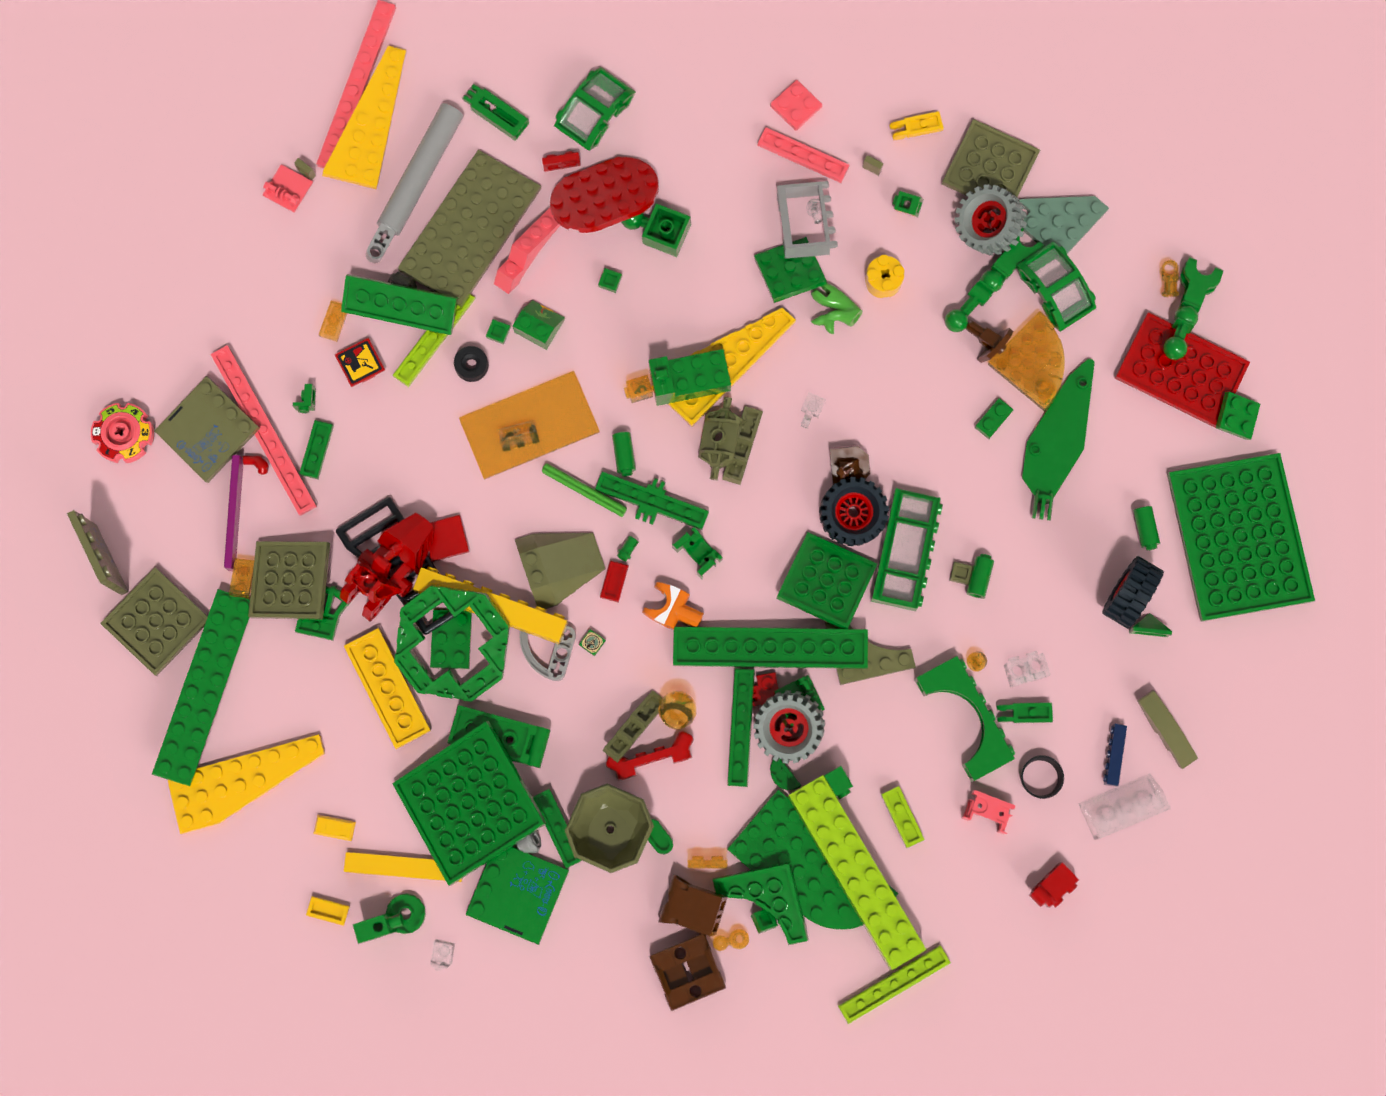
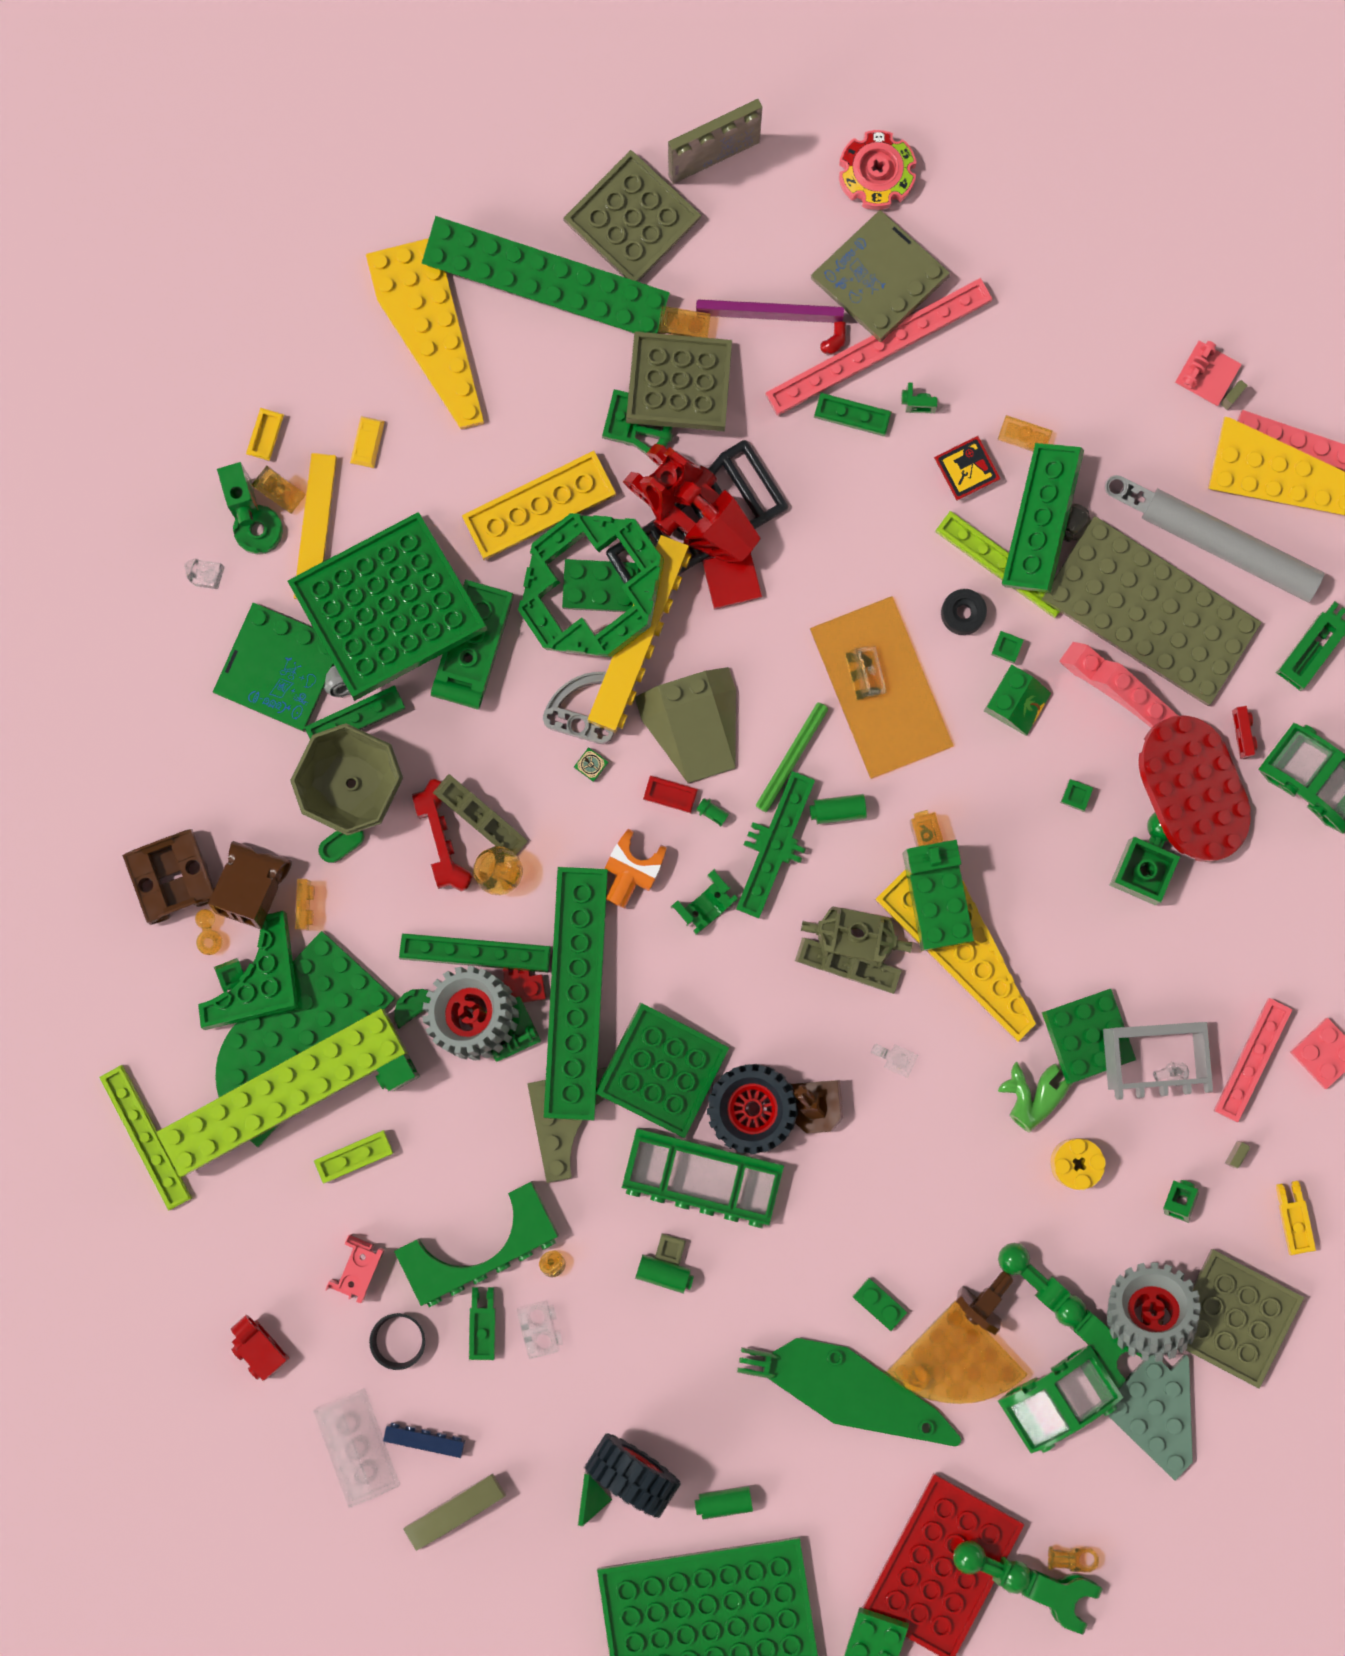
camera: 95 degrees right, 5 degrees up
(374, 895) = (278, 489): none -> clear yellow tile

